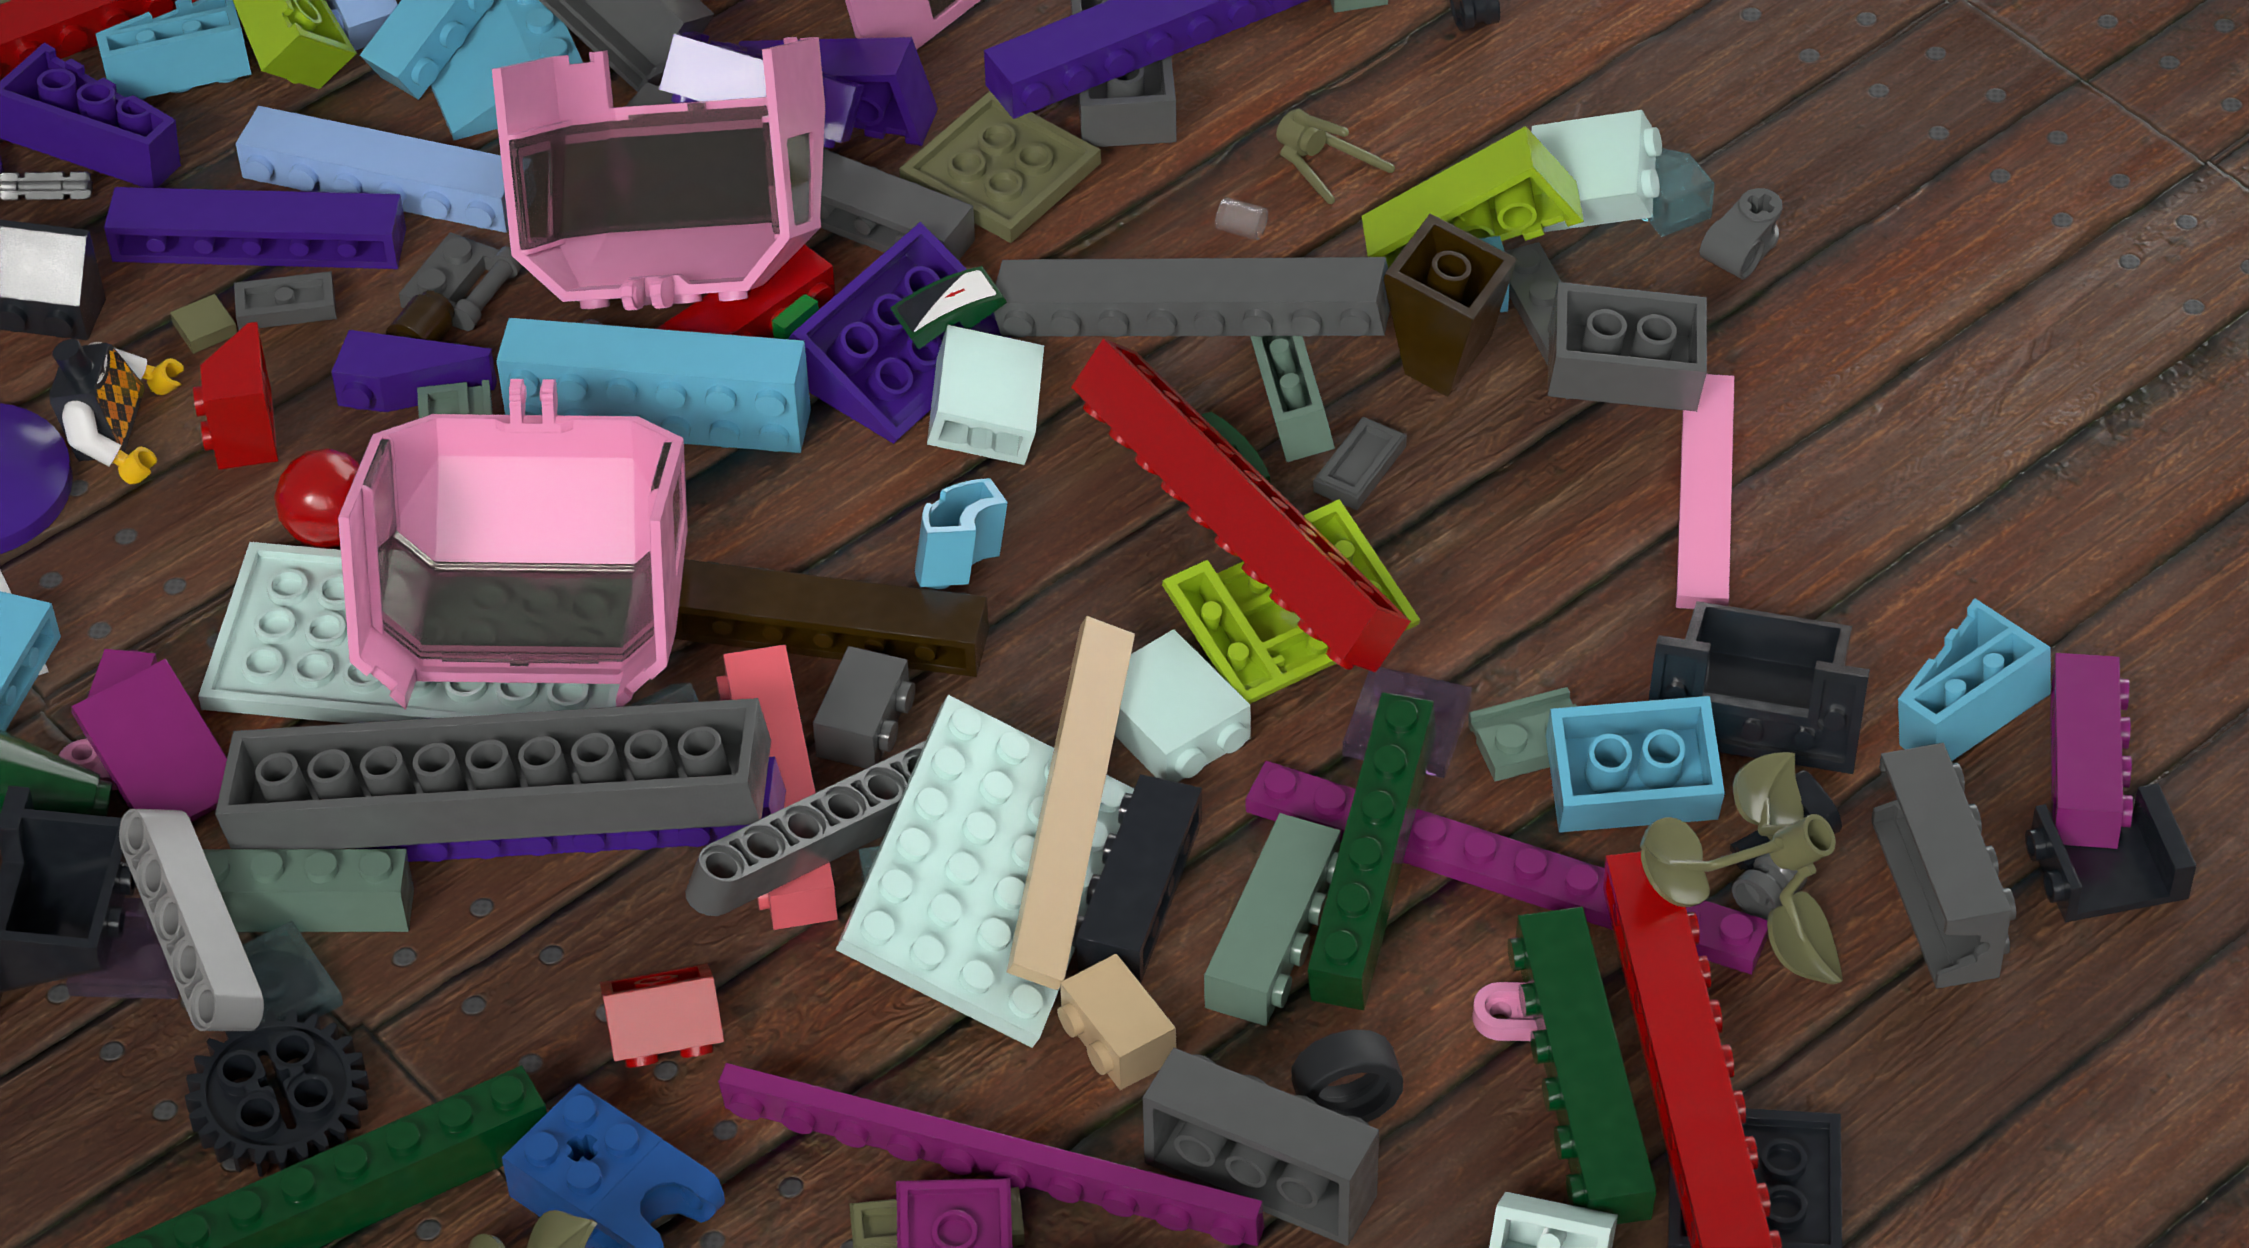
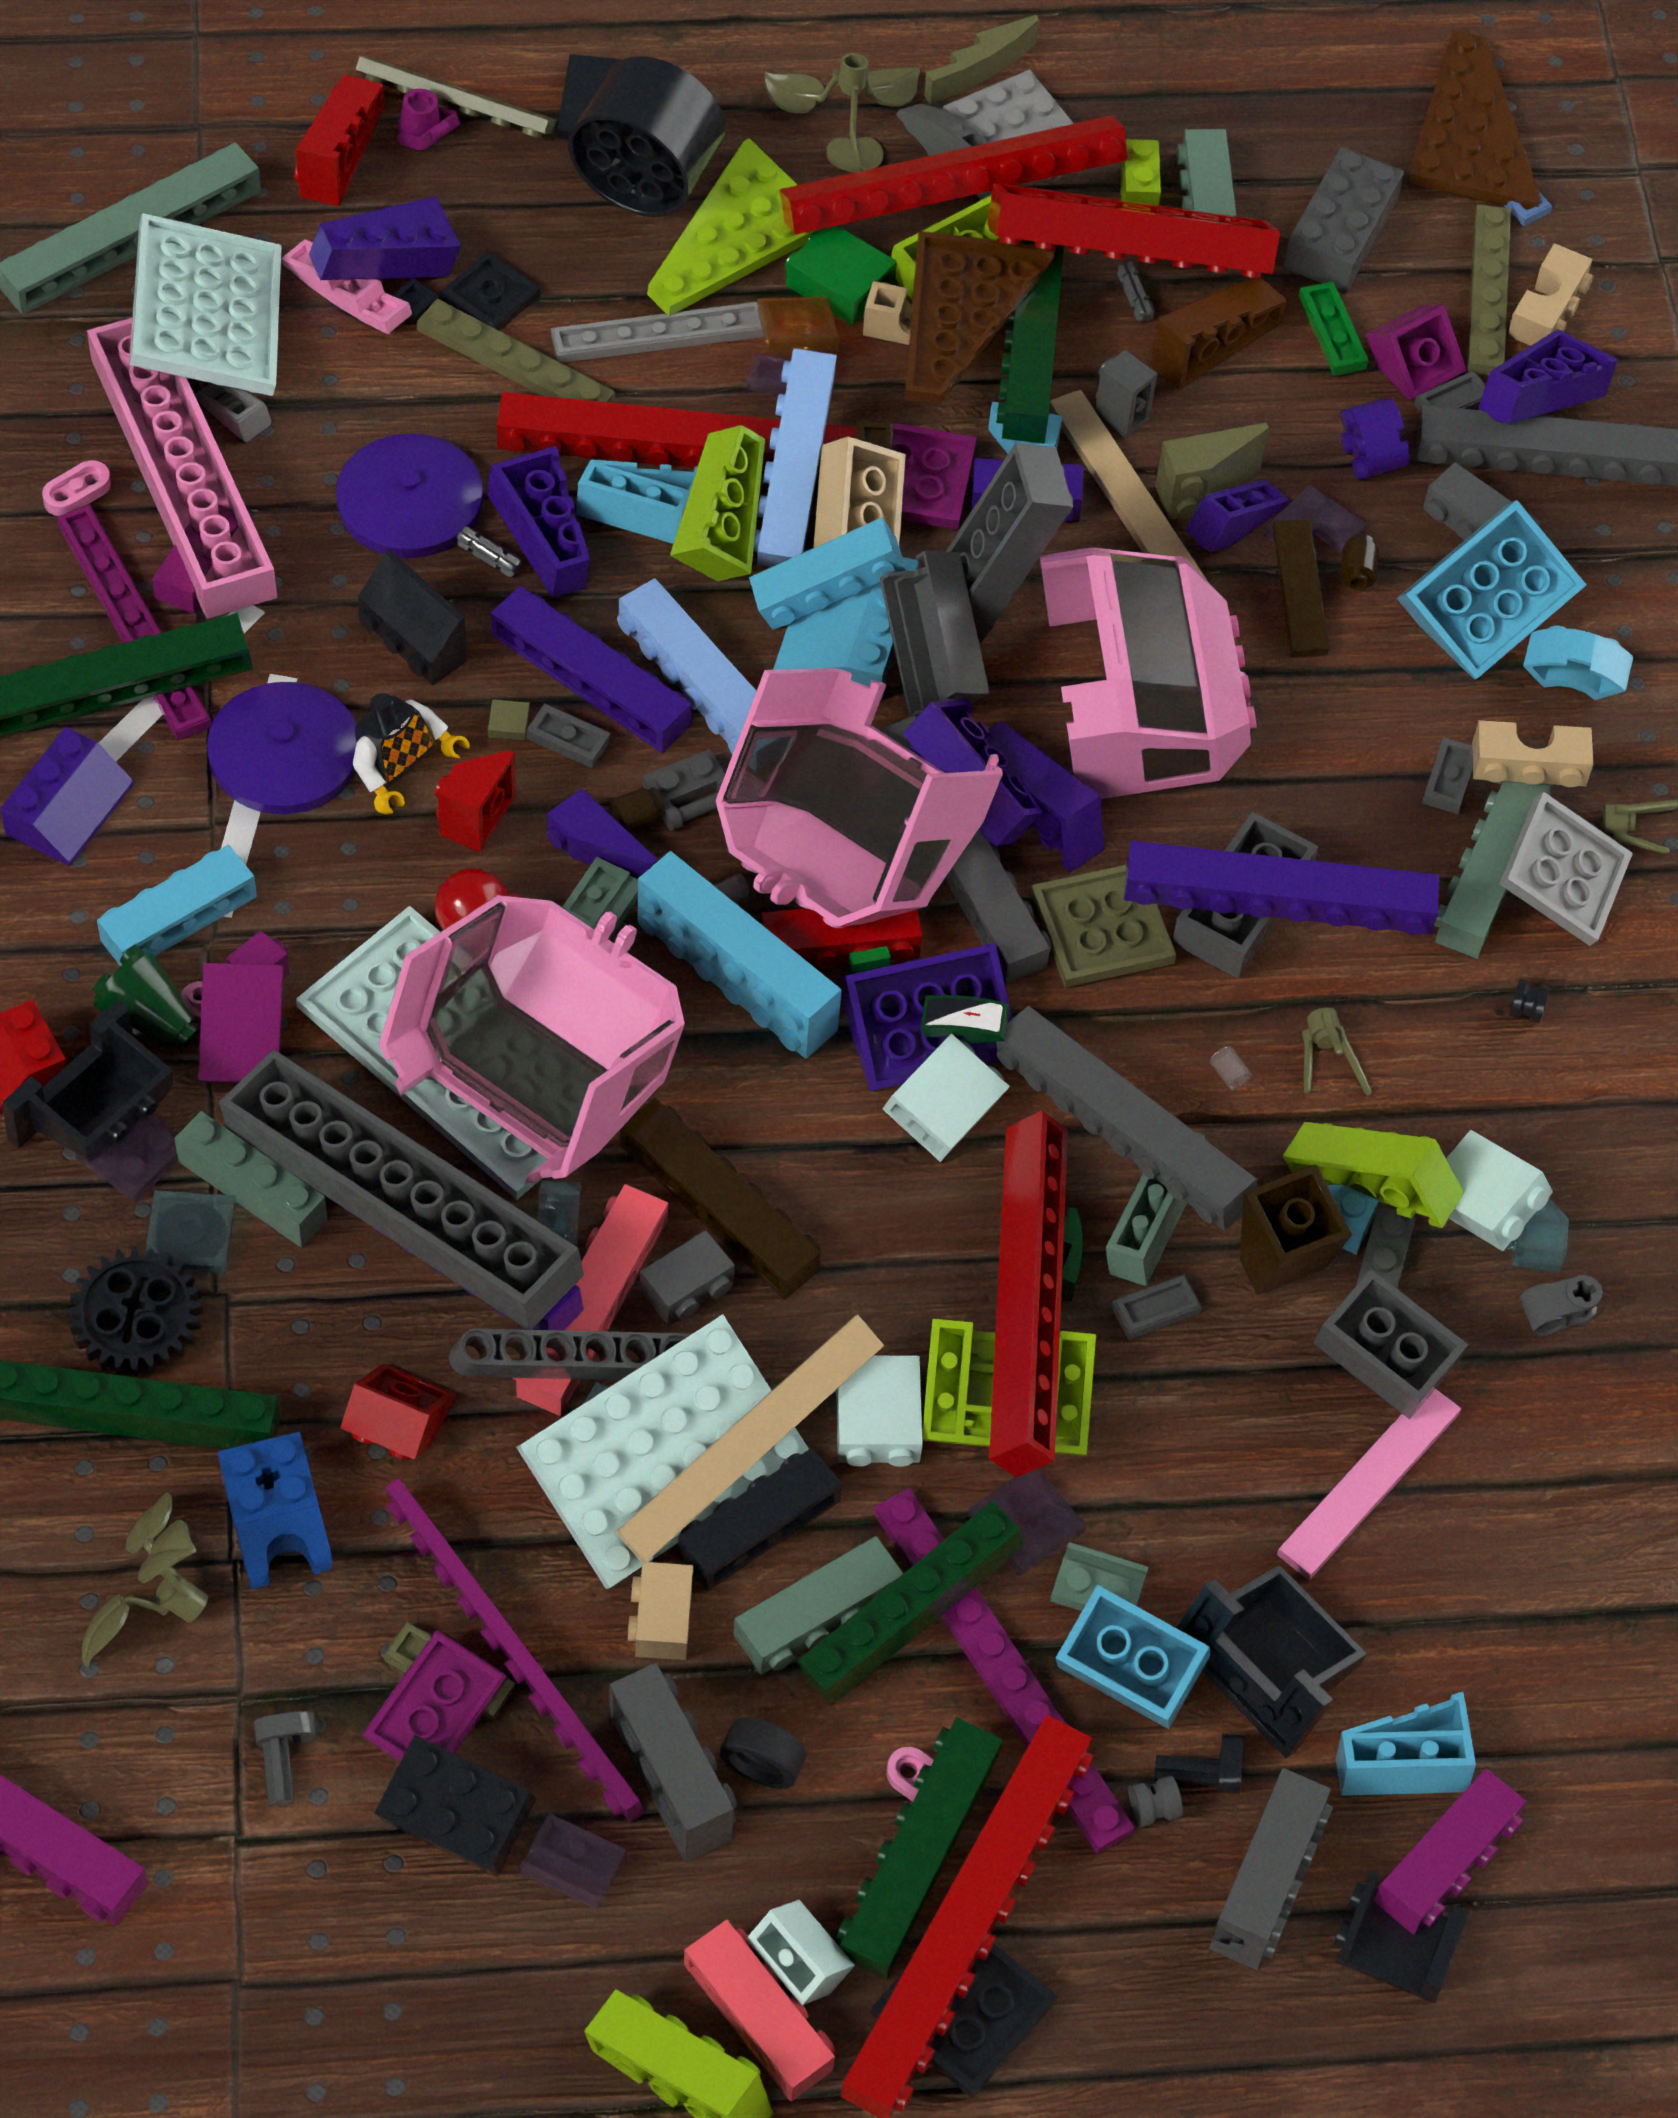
camera: 30 degrees right, 10 degrees up
(191, 920) = (155, 1165): light grey beam -> none
(959, 532) = (839, 1191): medium azure brick -> none
(1769, 798) = (1193, 1744): olive plant -> none

